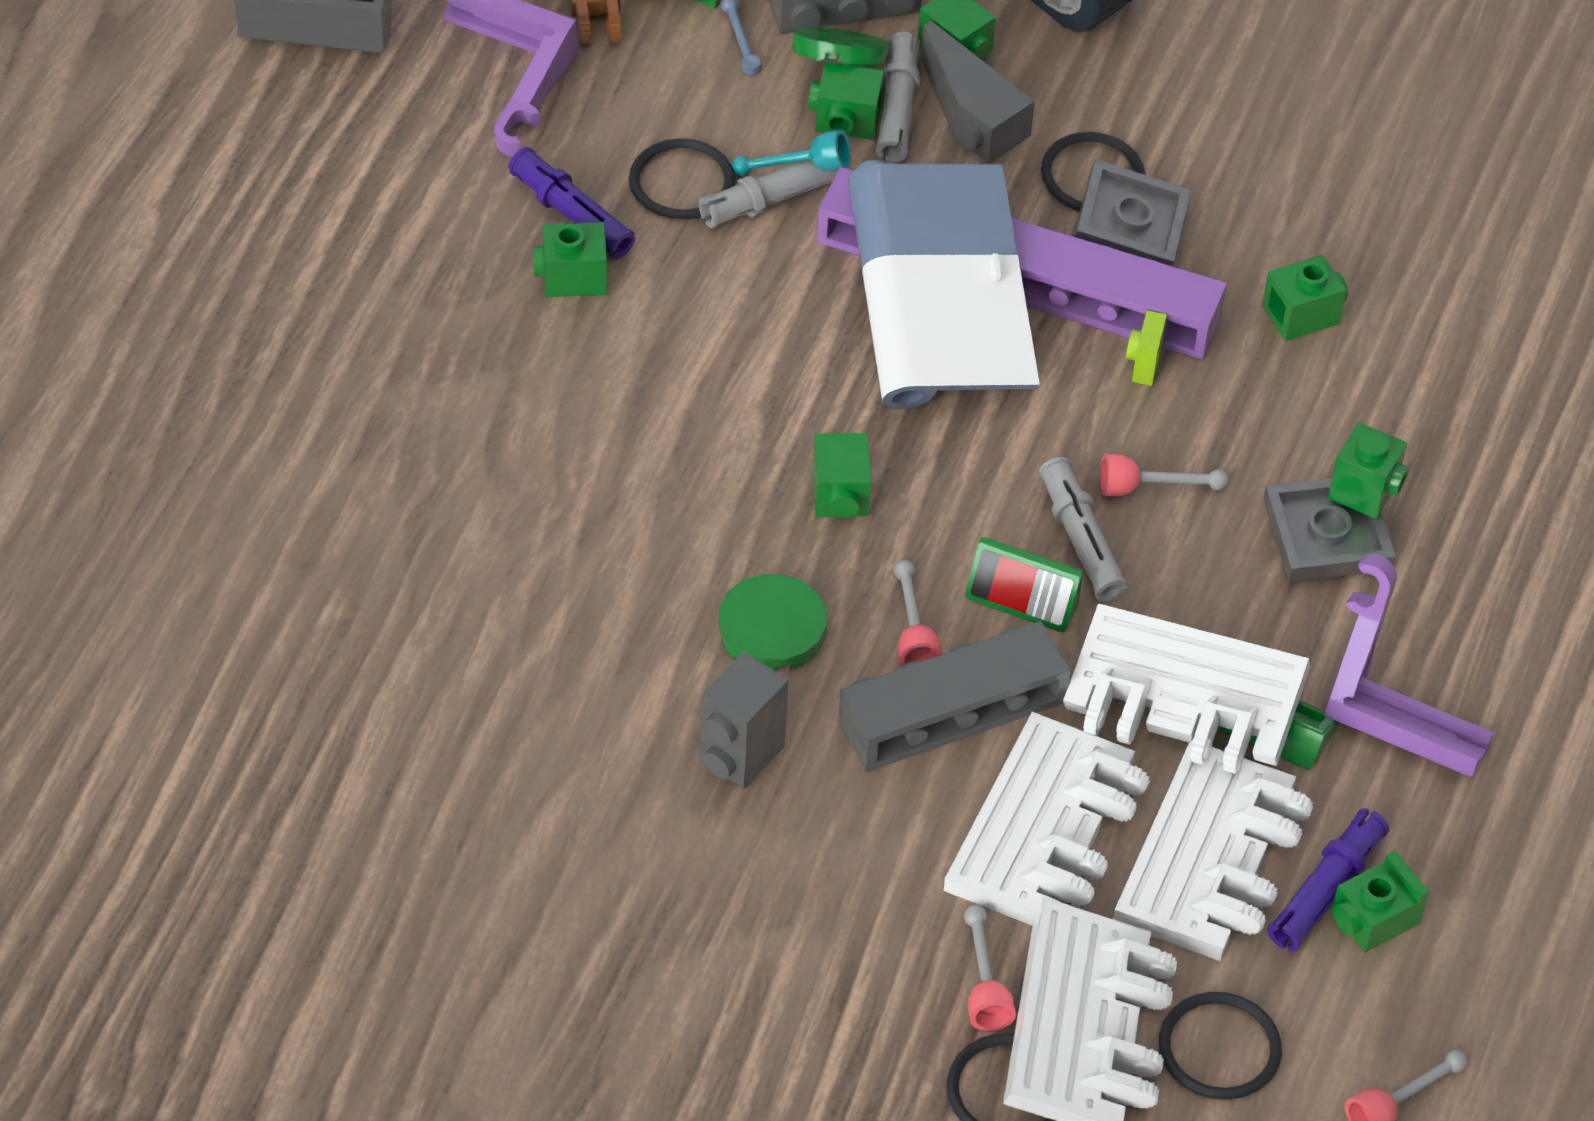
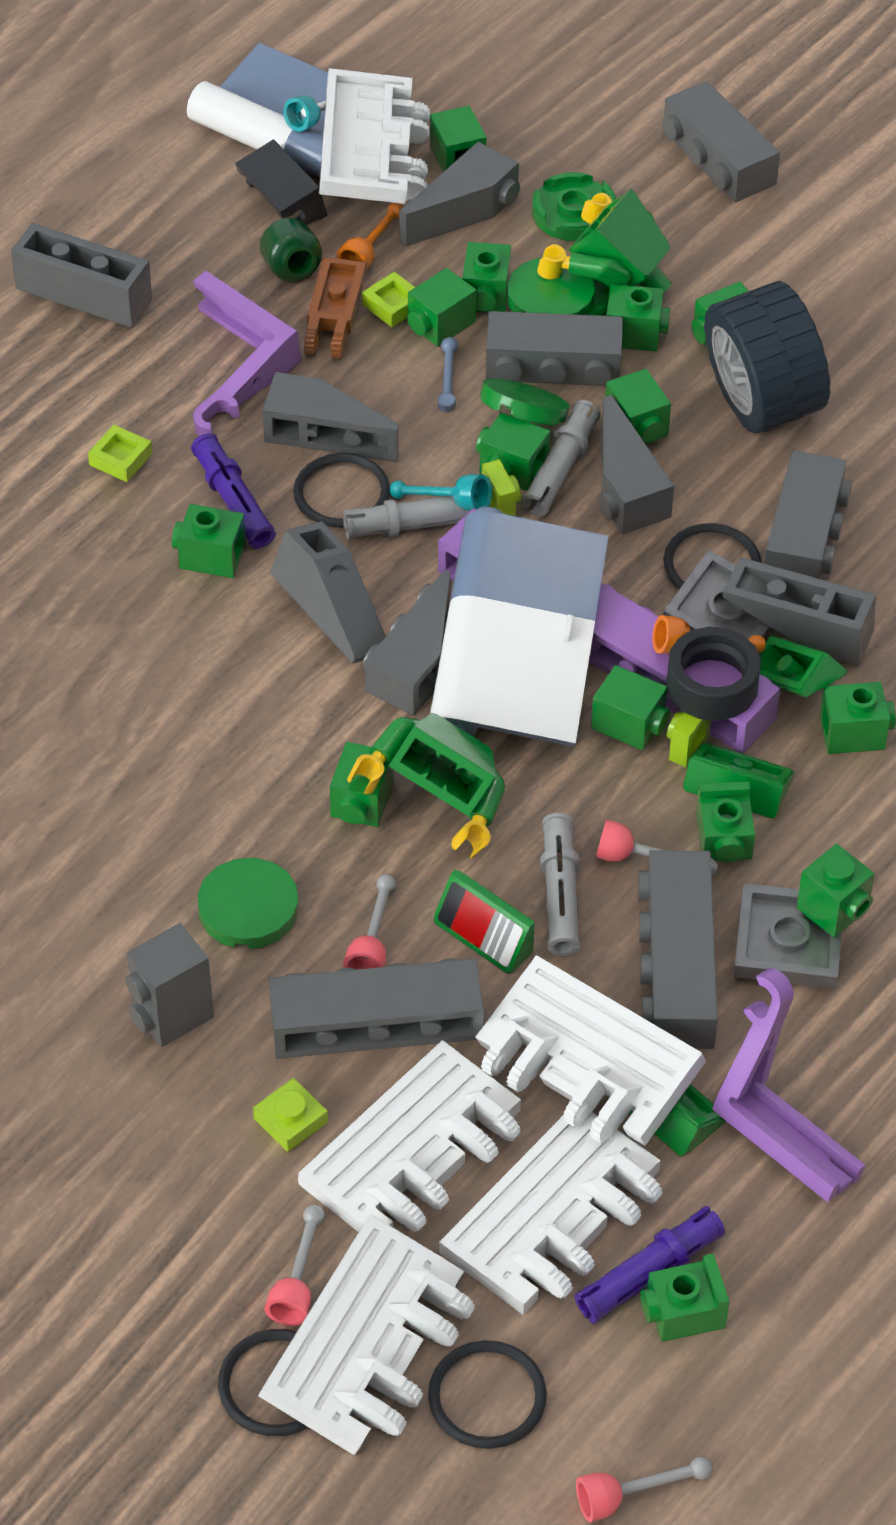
camera: 20 degrees right, 0 degrees up
(434, 188) = (120, 453): none -> lime plate
(636, 106) = (323, 418): none -> dark grey slope
(719, 277) = (328, 587): none -> dark grey slope
(837, 328) = (407, 660): none -> dark grey slope
(860, 137) = (504, 488): none -> lime plate
(908, 823) = (290, 1114): none -> lime plate
(926, 434) = (445, 764): none -> green torso
(1083, 336) = (630, 708): none -> green brick
(1104, 253) = (670, 628): none -> orange hinge
(1166, 253) = (716, 645): none -> black tyre
(1175, 109) = (808, 514): none -> dark grey brick
(1211, 386) = (721, 765): none -> green slope
(1220, 199) = (805, 608): none -> dark grey slope
(1220, 429) = (725, 821): none -> green brick
(1228, 558) = (680, 946): none -> dark grey brick
(1231, 258) = (798, 667): none -> green slope

